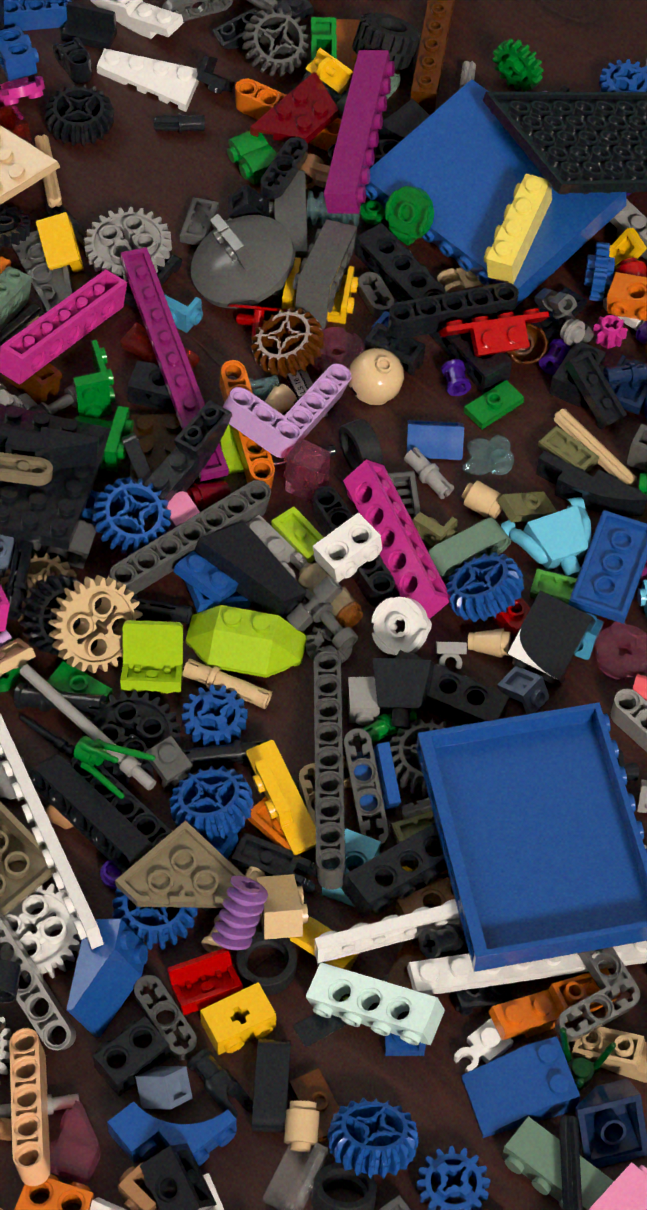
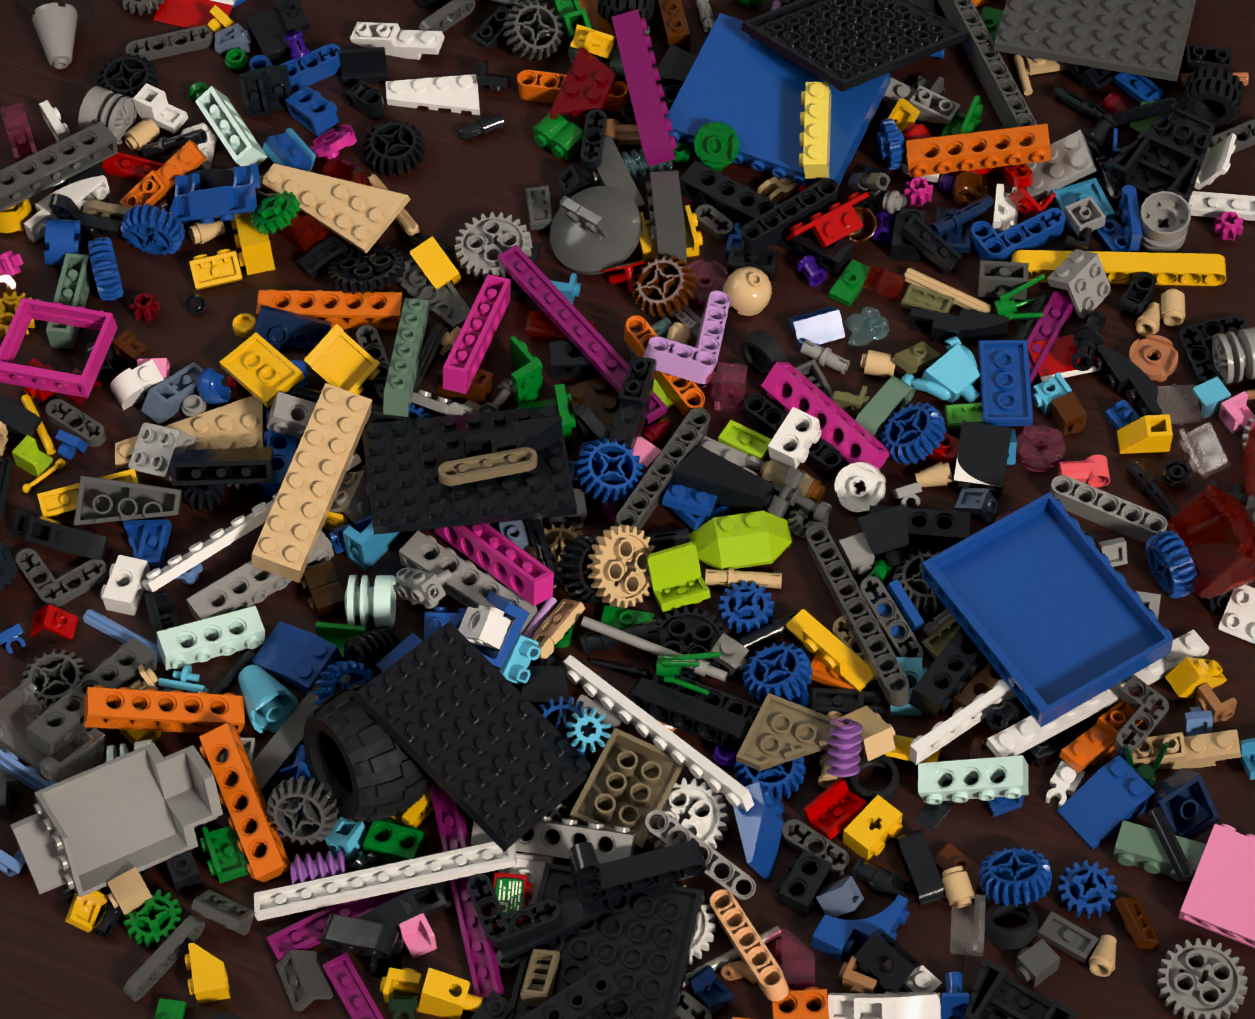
camera: 15 degrees left, 0 degrees up
(529, 415) = (884, 282): none -> clear red panel

